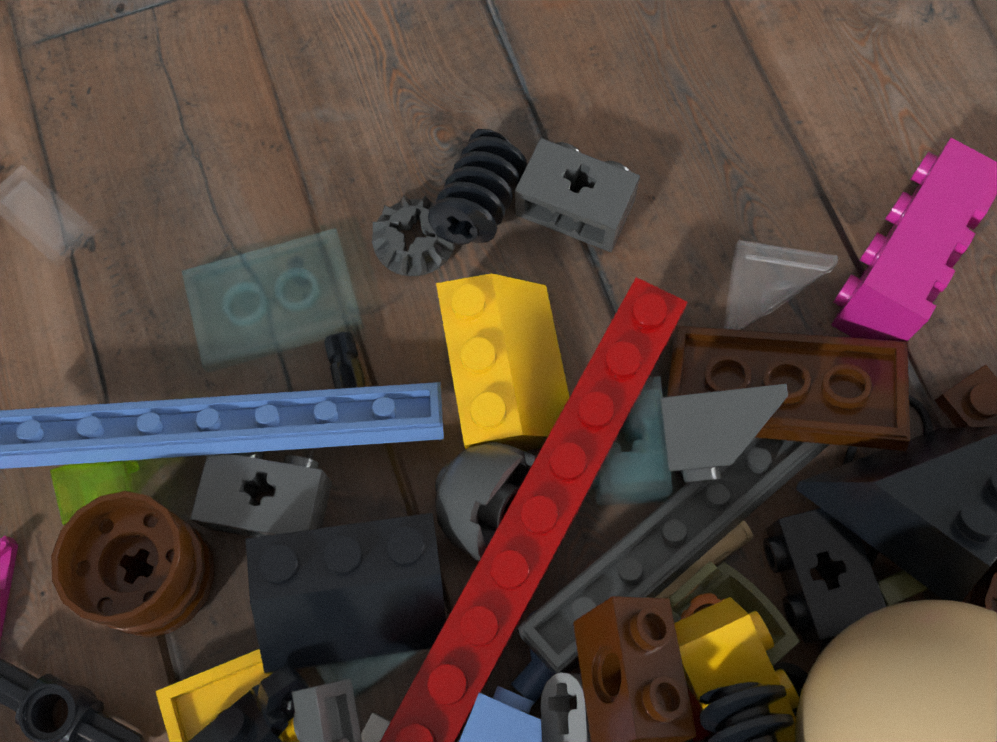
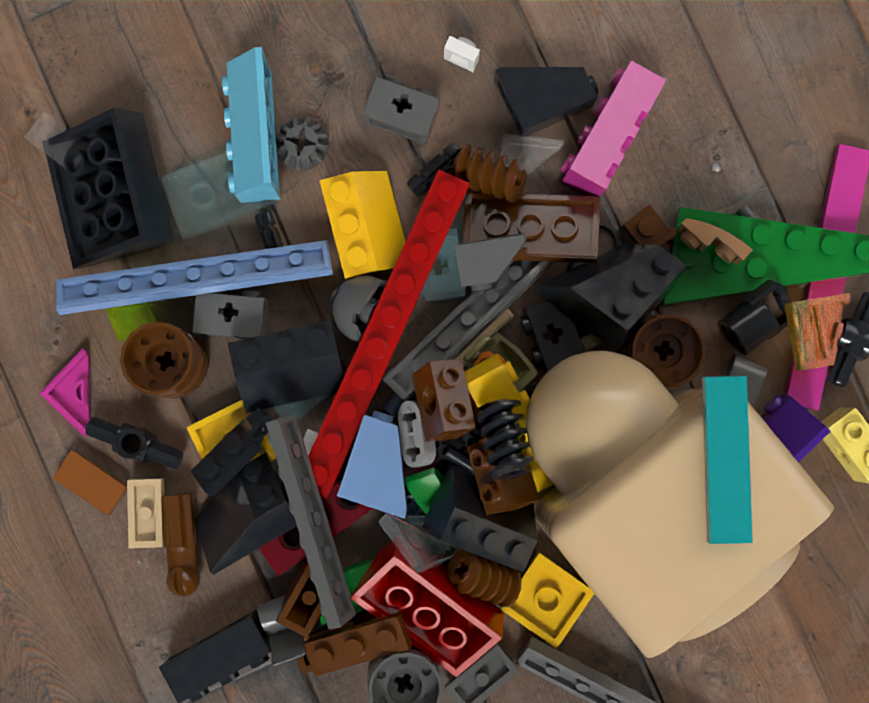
camera: 10 degrees left, 15 degrees up
(113, 296) = (115, 197): none -> black slope
(337, 204) = (252, 128): none -> medium azure slope
(478, 189) = (339, 113): black piece -> none
(598, 308) = (419, 184): none -> black axle
(675, 118) = (462, 53): none -> white plate
(720, 296) = (489, 175): none -> reddish brown piece
(806, 185) = (544, 95): none -> black slope

